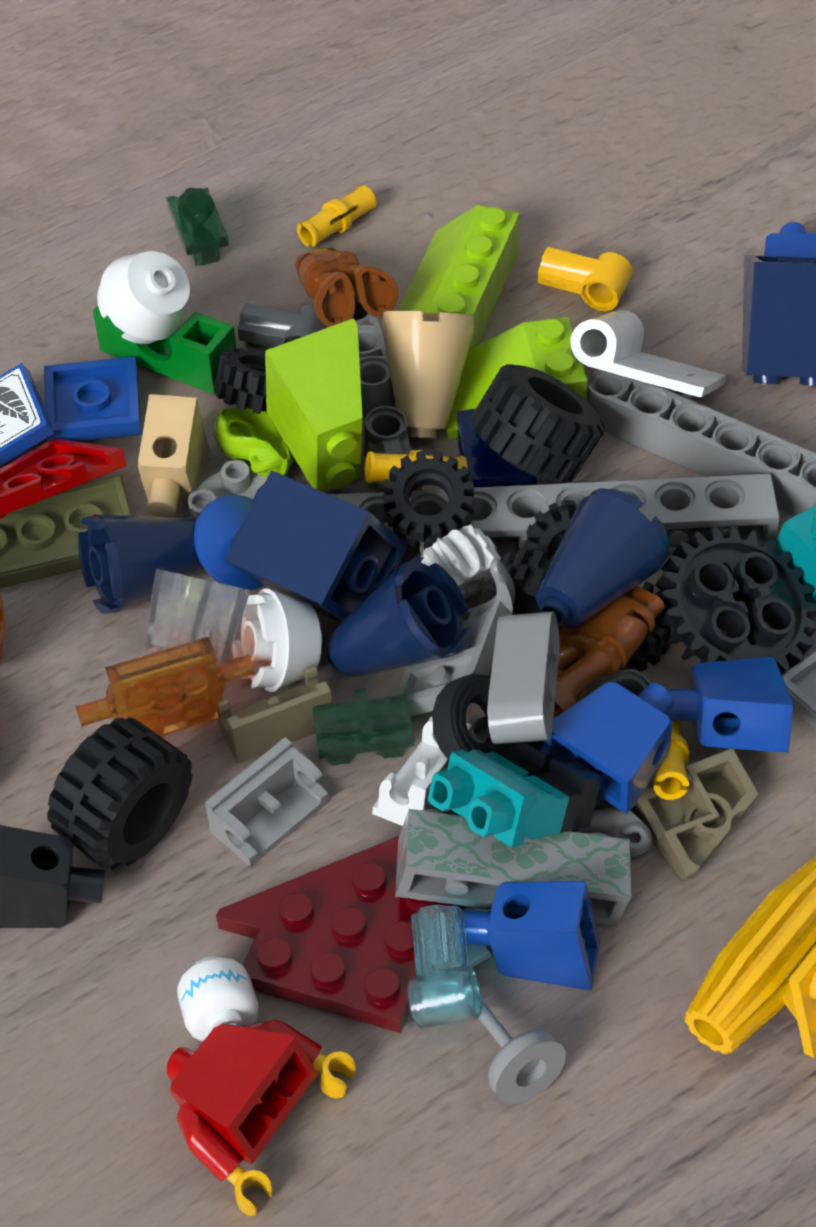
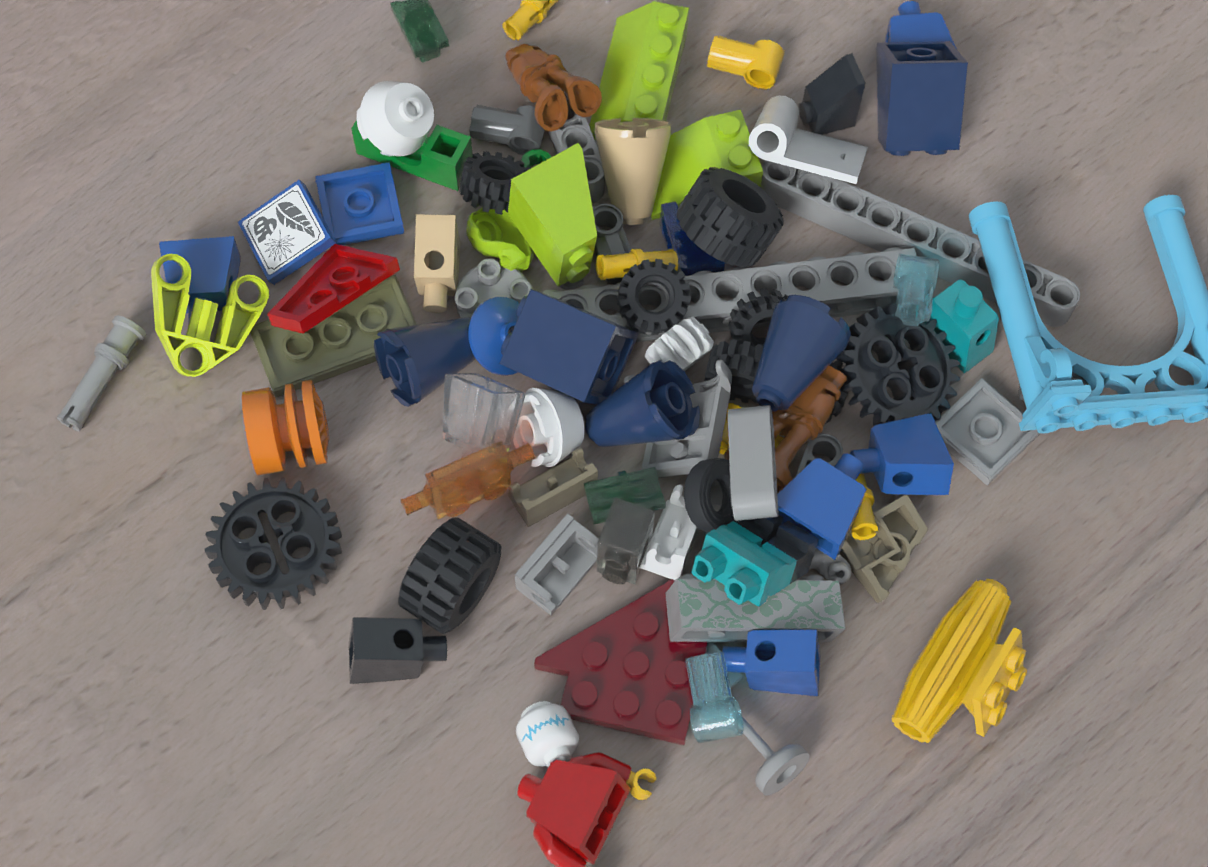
camera: 10 degrees left, 15 degrees up
(349, 772) = (624, 542): none -> clear smoke brick
(686, 314) = (833, 97): none -> black slope
(763, 507) = (915, 284): none -> clear light blue piece

